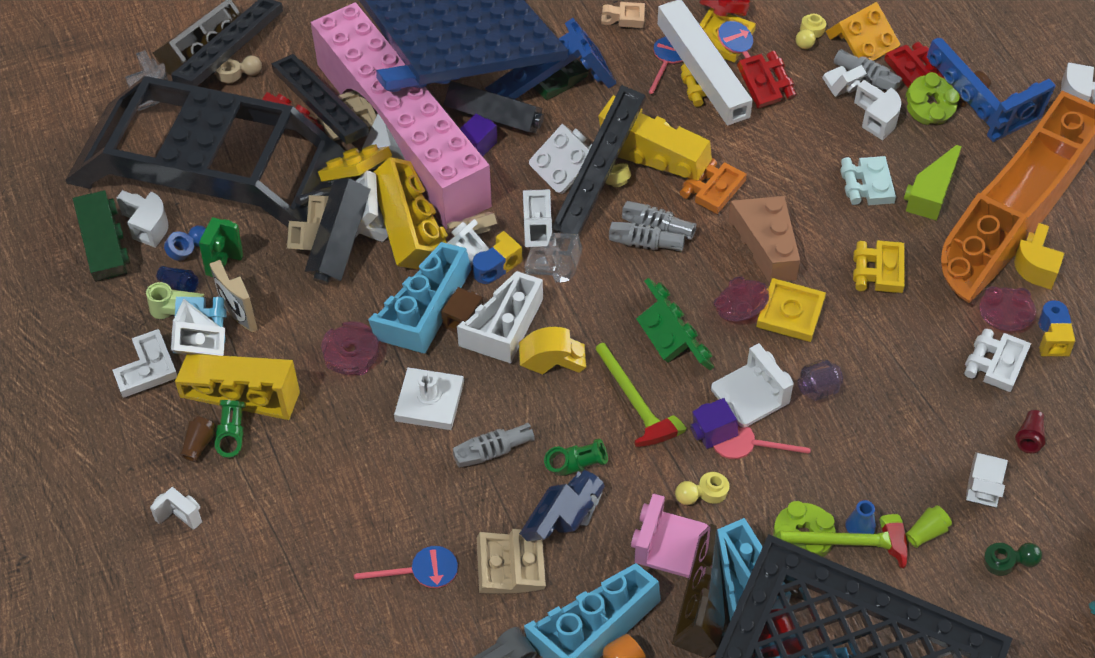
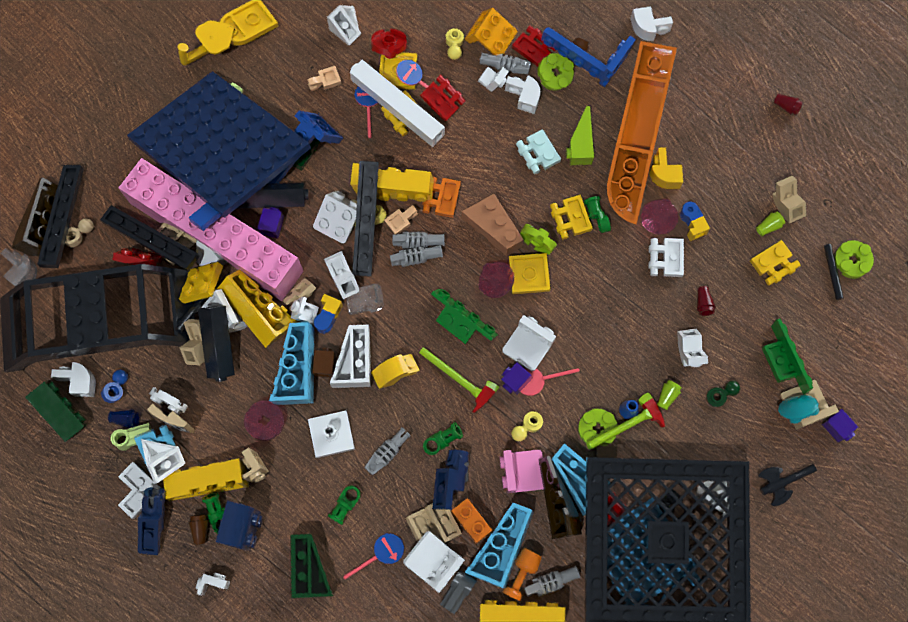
camera: 25 degrees left, 20 degrees up
(141, 402) = (151, 521): none -> dark blue plate
(220, 242) = (138, 383): green bracket -> none
(238, 266) = (162, 397): none -> white plate
(248, 443) = (239, 526): none -> dark blue brick
(306, 391) = (258, 468): none -> tan bracket
(307, 539) = (306, 569): none -> dark green wedge
(401, 486) = (344, 505): none -> green connector
(486, 597) = (433, 561): none -> white bracket
(565, 569) = (471, 521): none -> orange brick
(645, 191) = (399, 221): none -> light nougat plate
(820, 379) = (567, 320): clear purple head -> none
(821, 268) = (538, 238): none -> lime plate
(918, 273) = (596, 212): none -> green connector

